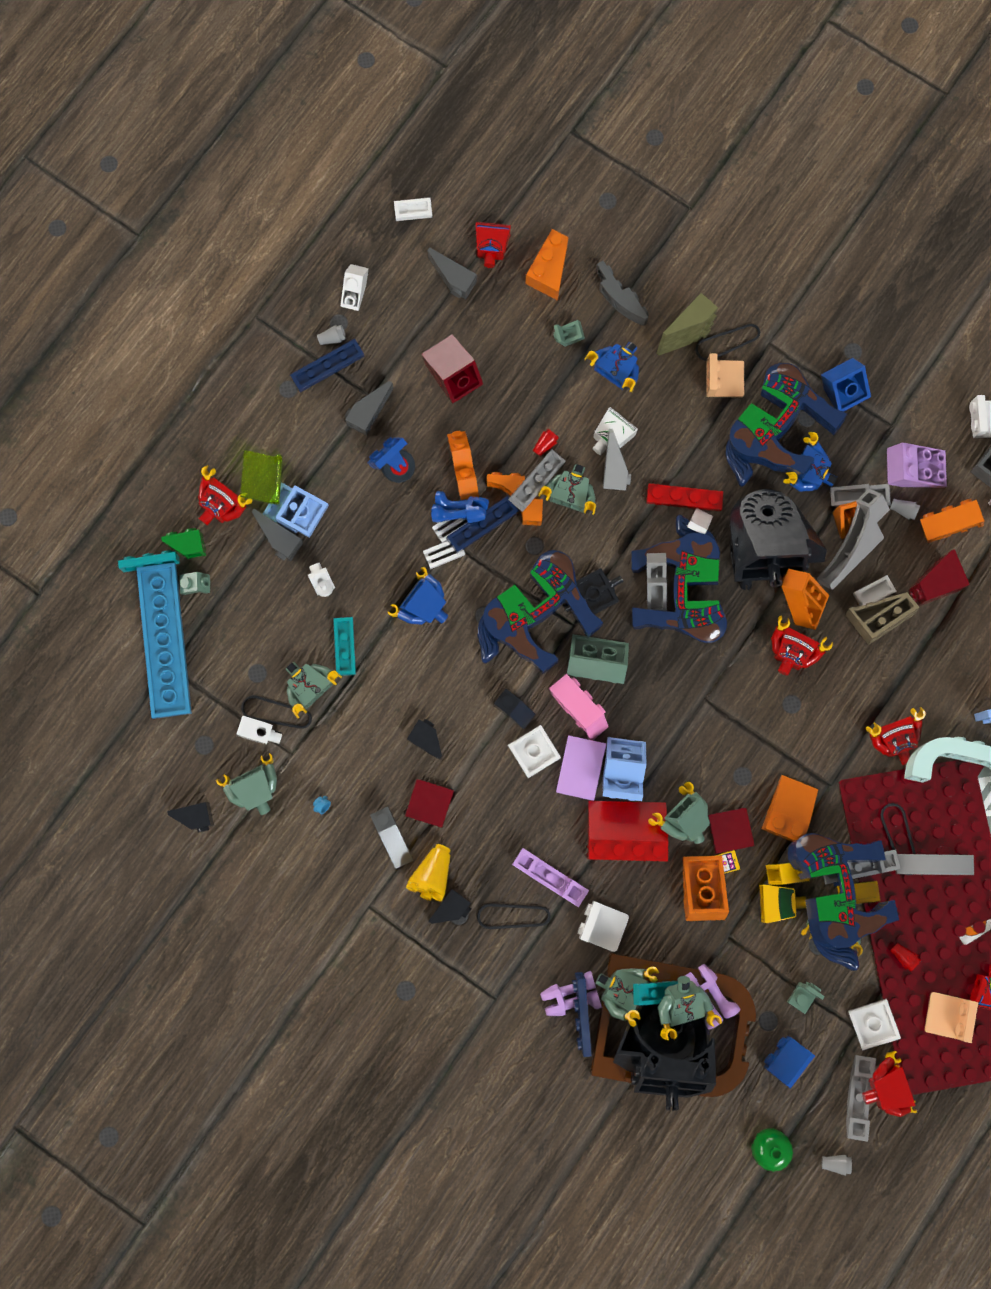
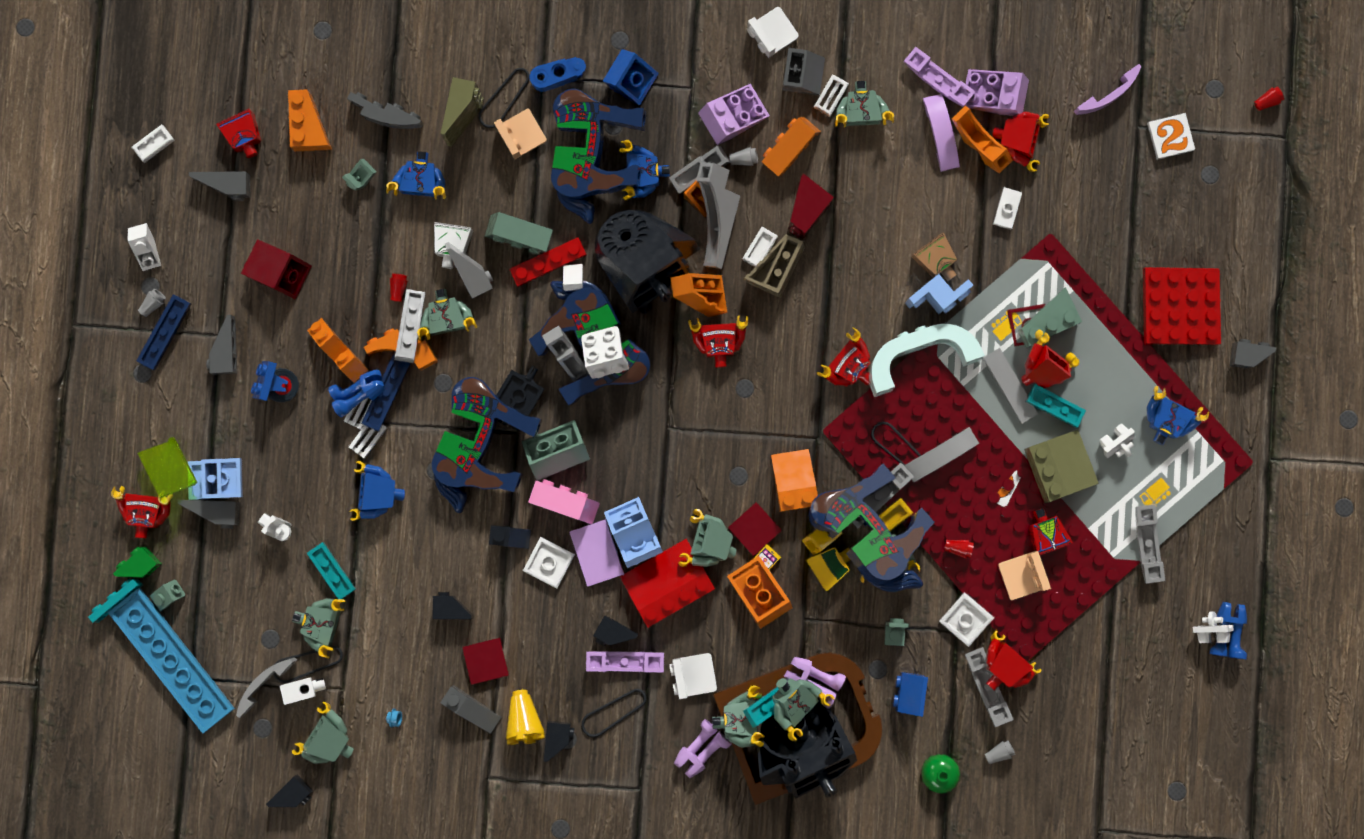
camera: 25 degrees left, 5 degrees up
(205, 714) = (247, 700): none -> light grey slope
(554, 845) = (613, 632): none -> black slope
(582, 1021) = (722, 767): dark blue plate -> none
(675, 457) = (518, 233): none -> sand green wedge
(692, 599) = (603, 352): none -> white bracket
(800, 349) = (573, 69): none -> blue piece

